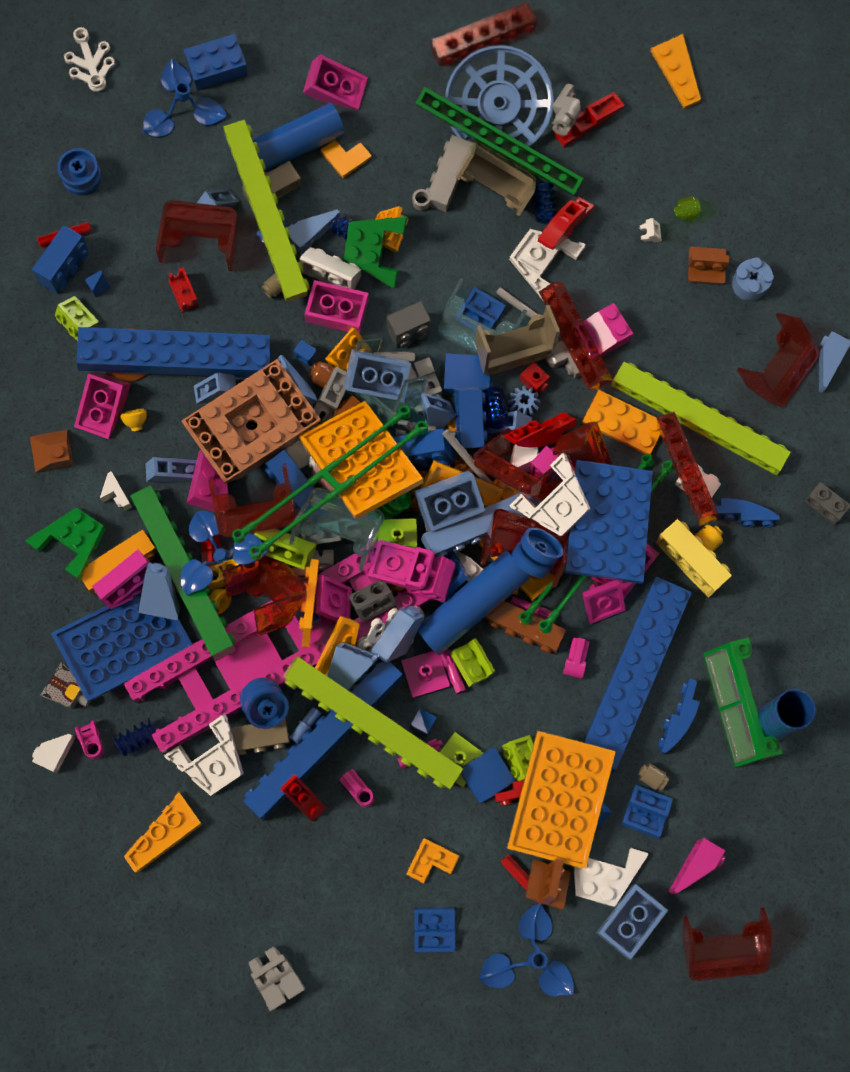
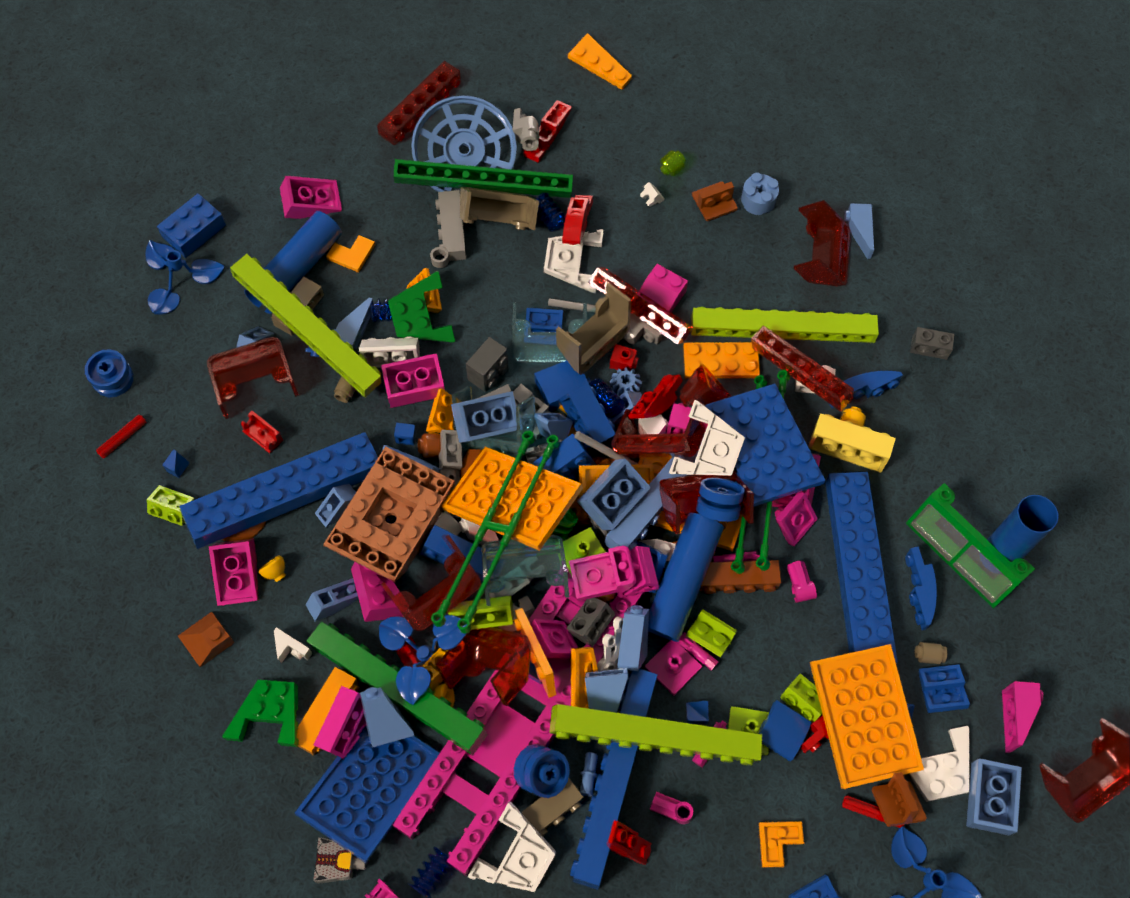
camera: 25 degrees left, 10 degrees down
(60, 260) = (129, 458): blue brick -> none
(89, 62) = (71, 278): white plant -> none

